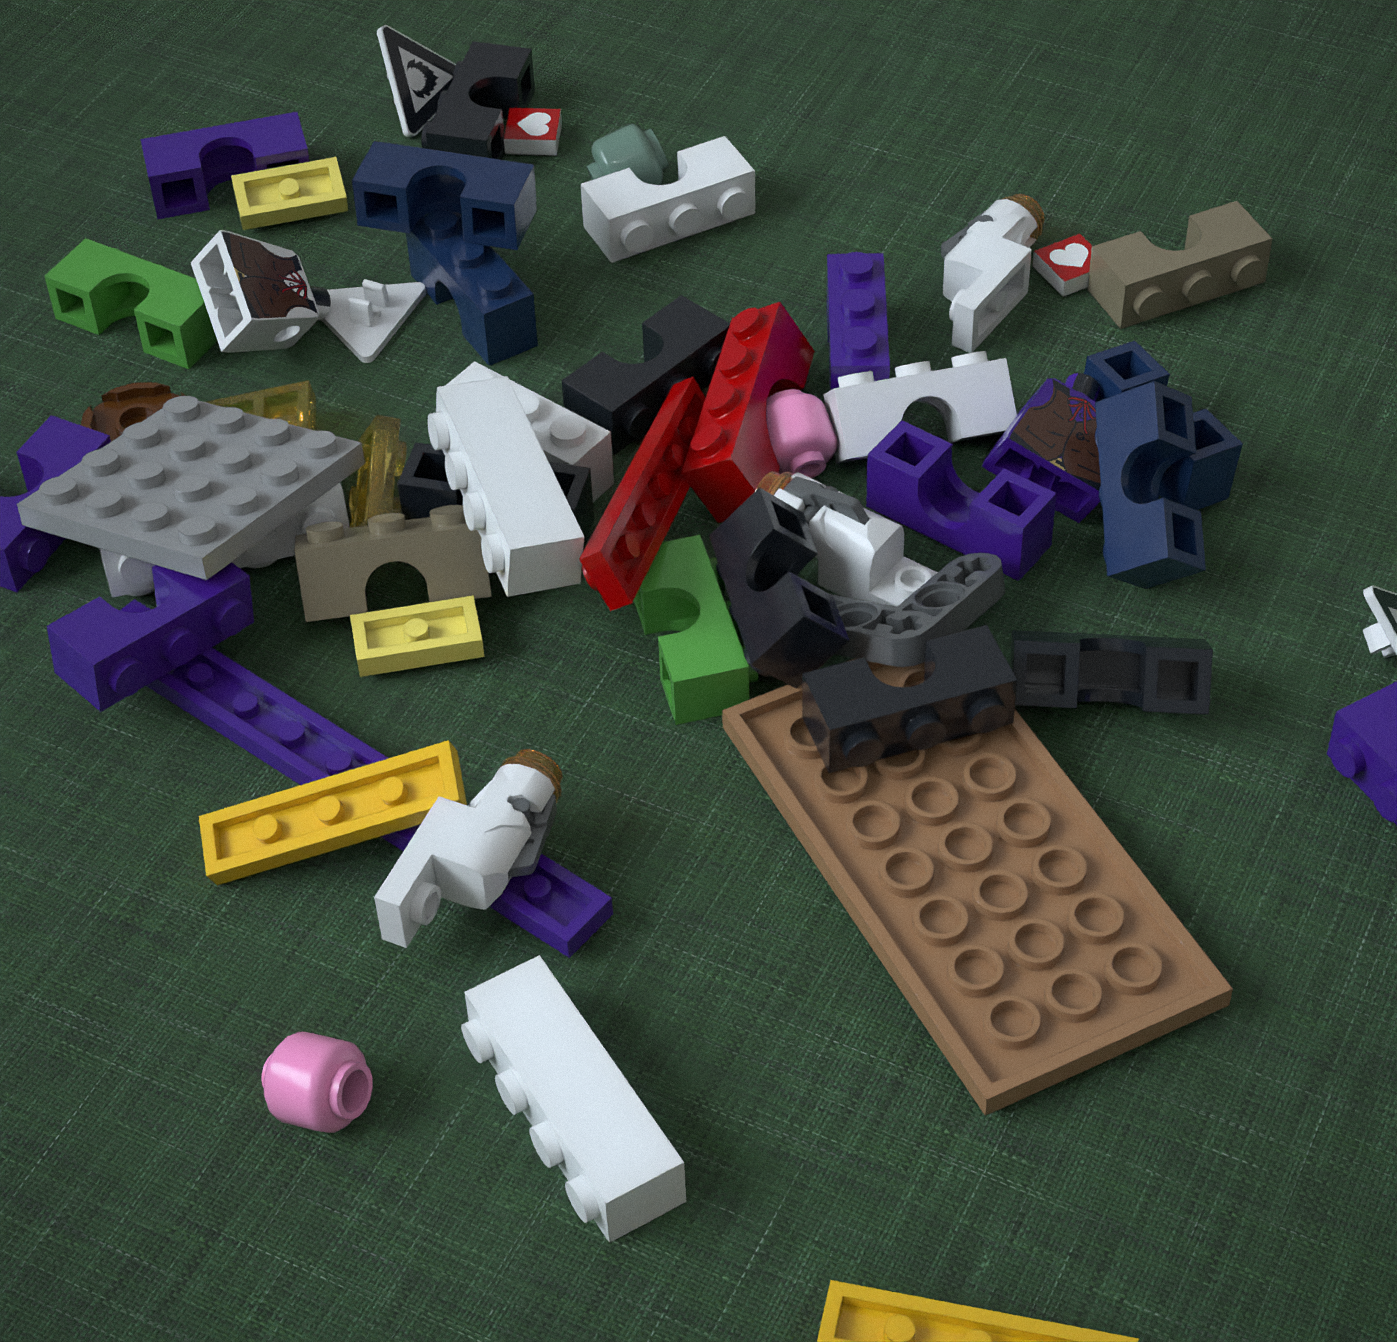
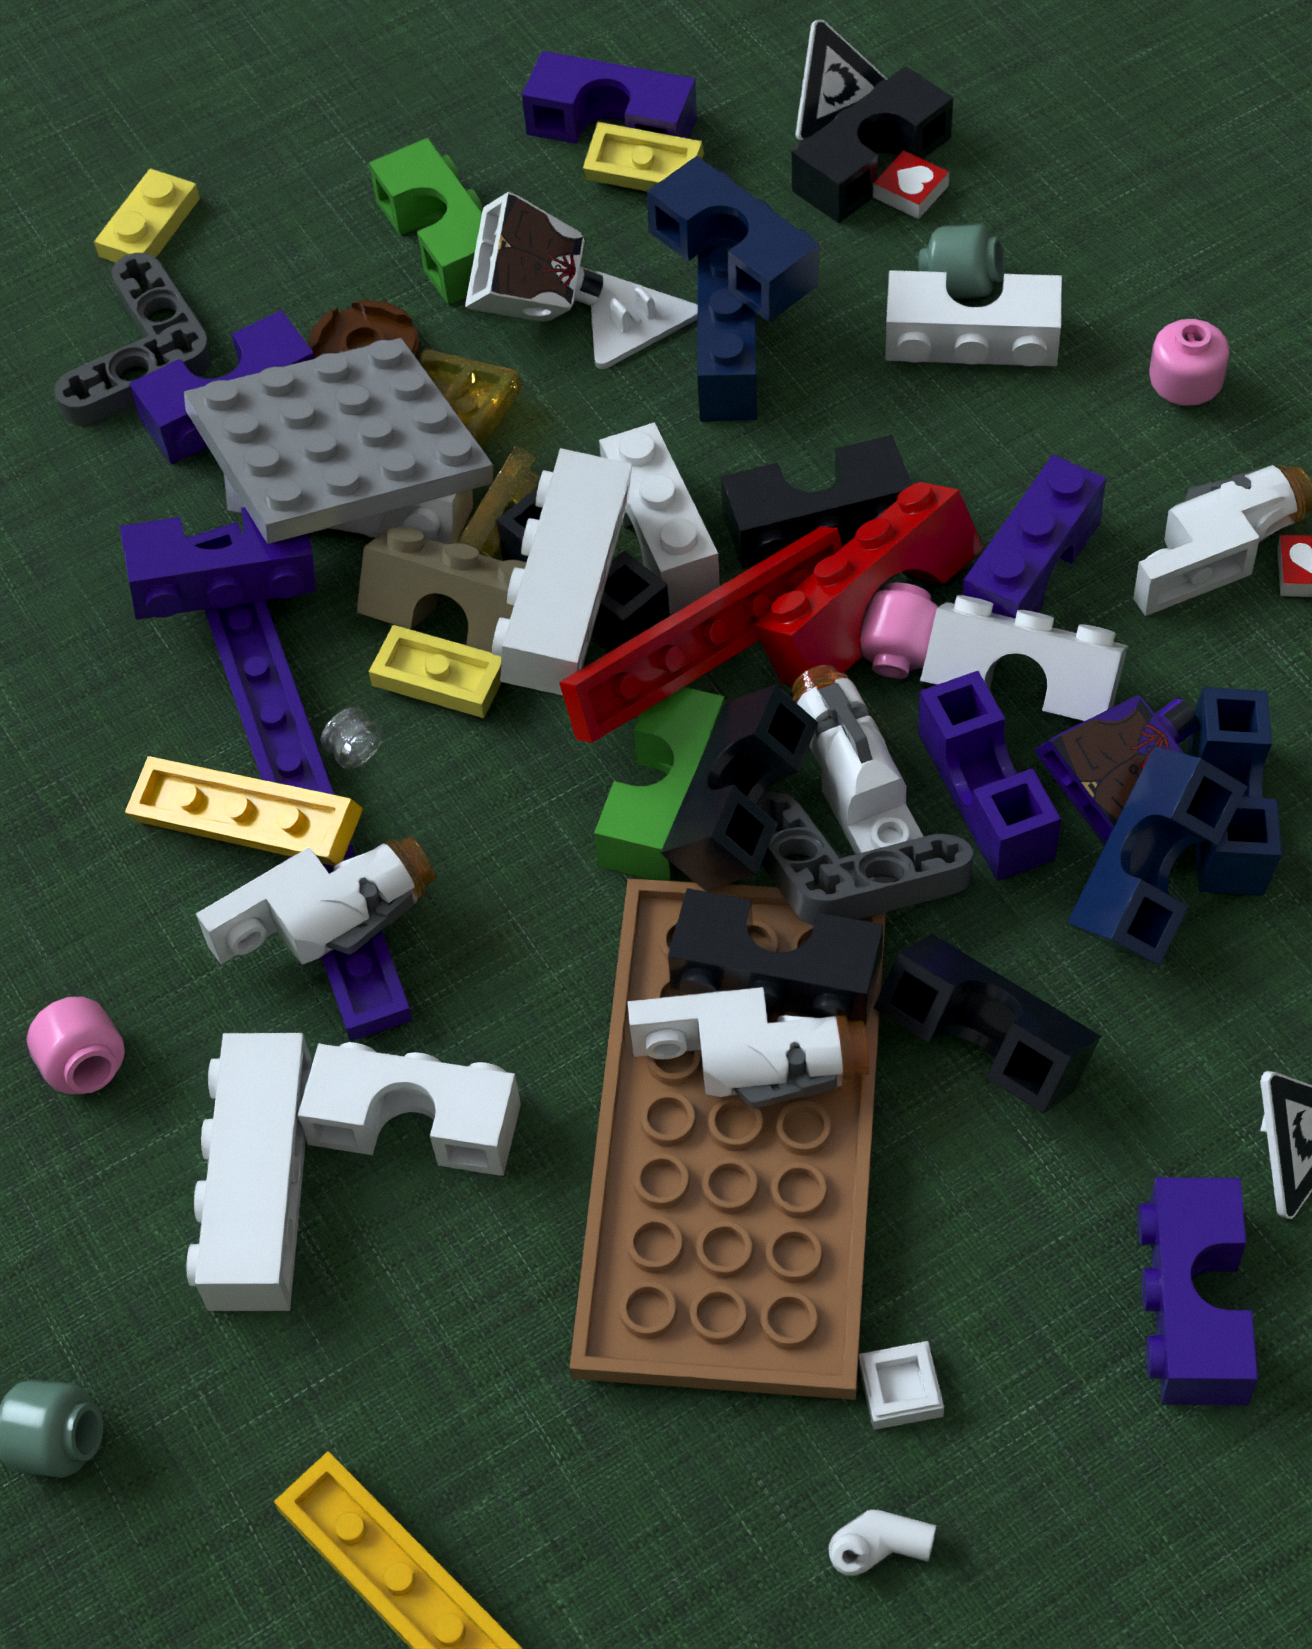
camera: 35 degrees right, 10 degrees up
(380, 719) = (352, 737): none -> clear bush
(722, 949) = (359, 1090): none -> white arch
(869, 161) = (1189, 362): none -> bright pink head
(939, 775) = (744, 1051): none -> white plate
(1258, 975) = (900, 1385): none -> white tile
(1334, 1091) = (875, 1537): none -> white arm

